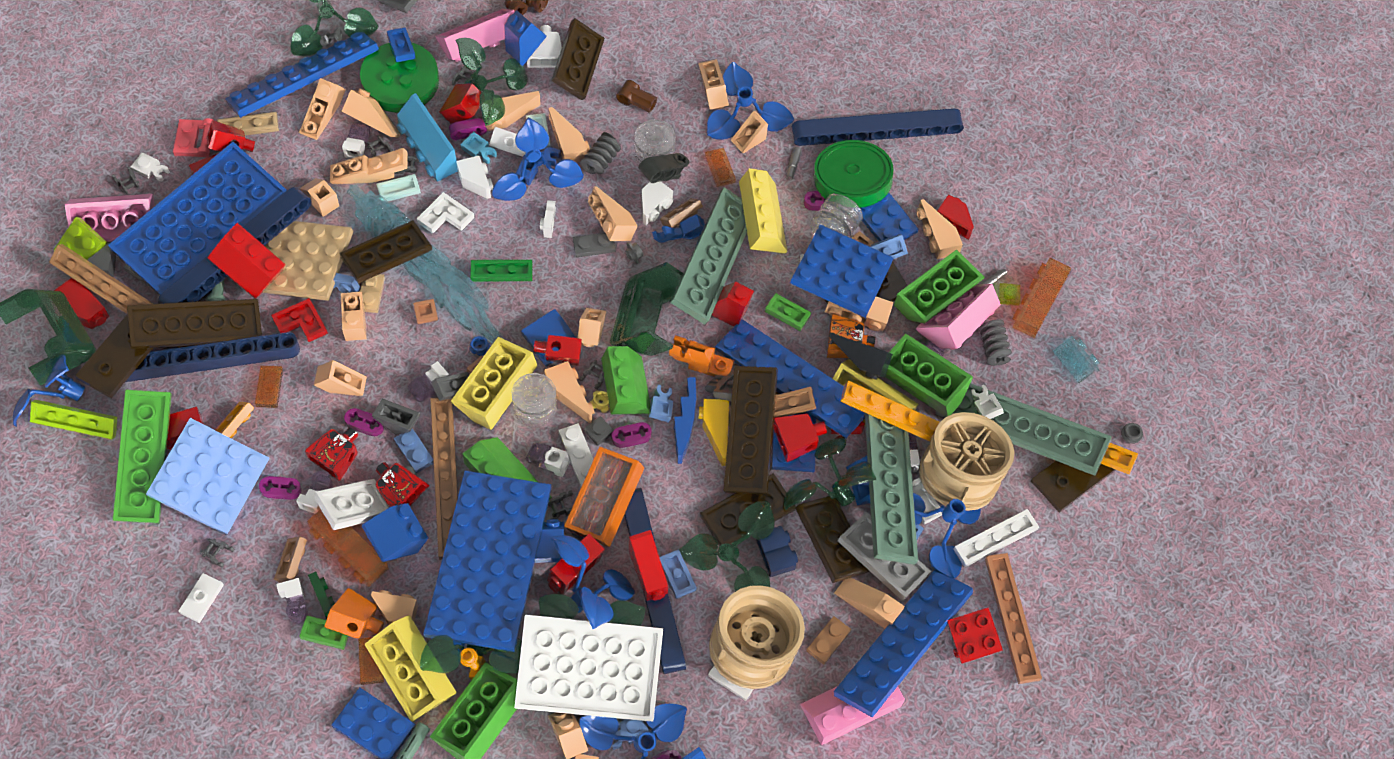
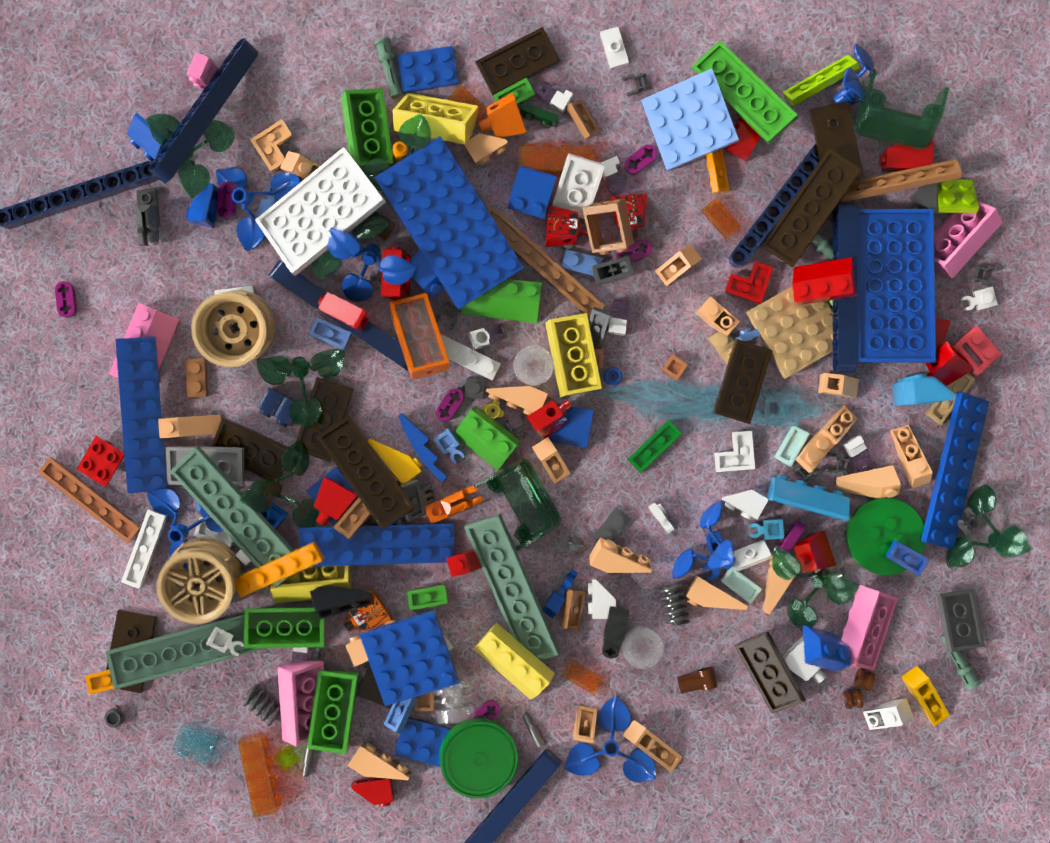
camera: 145 degrees right, 25 degrees up
(270, 129) = (920, 390): none -> dark azure slope
(291, 659) = (517, 61): none -> dark brown plate
(351, 461) = (590, 214): none -> medium nougat window

